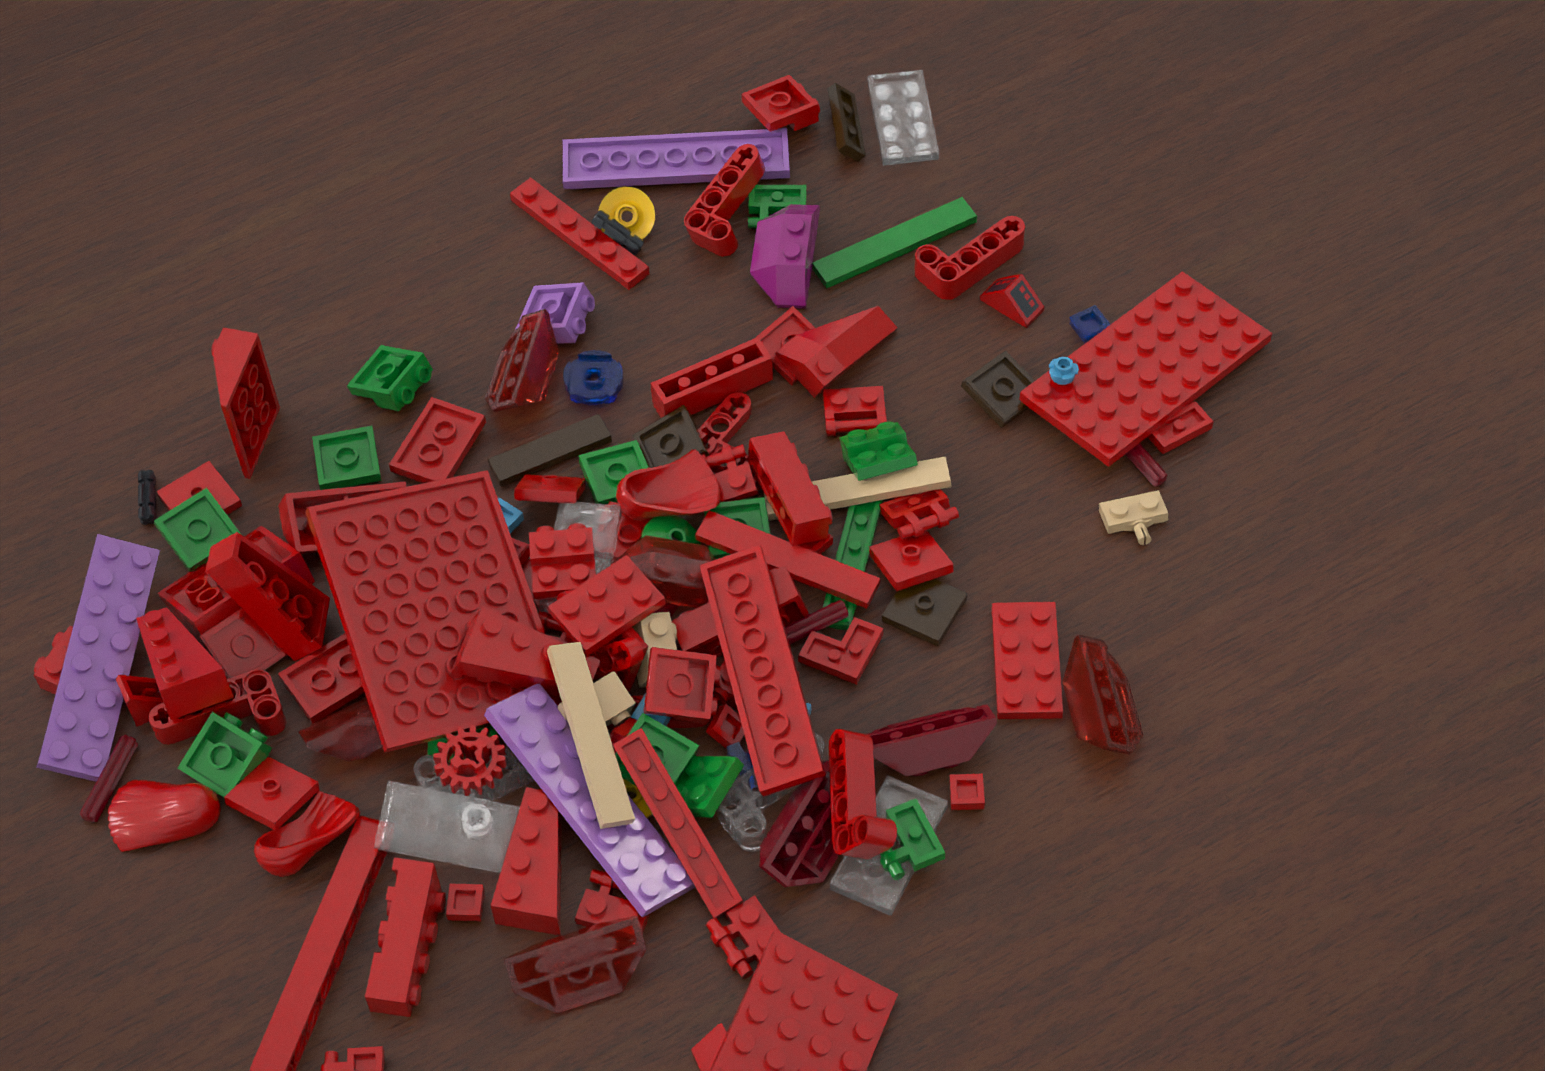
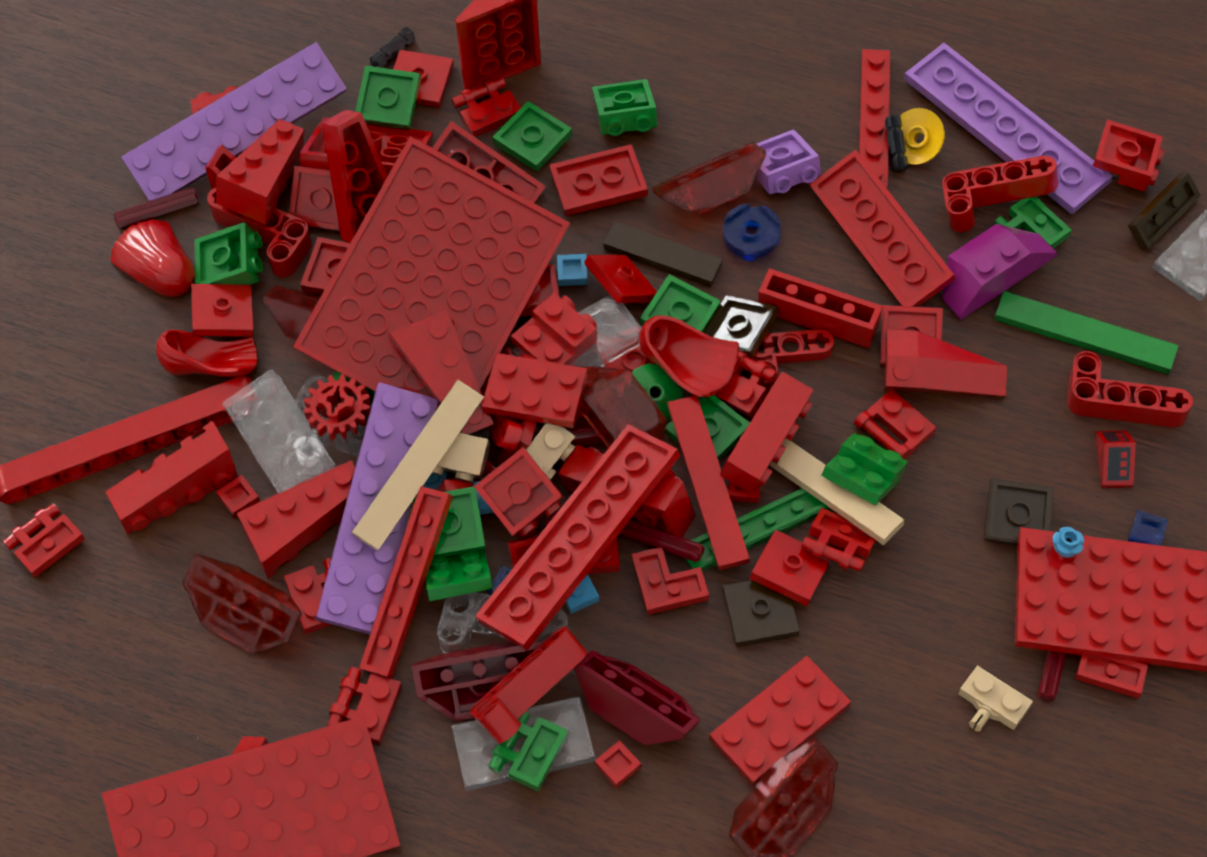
camera: 50 degrees right, 5 degrees up
(290, 470) = (490, 113): none -> red plate
(685, 295) = (882, 231): none -> red plate

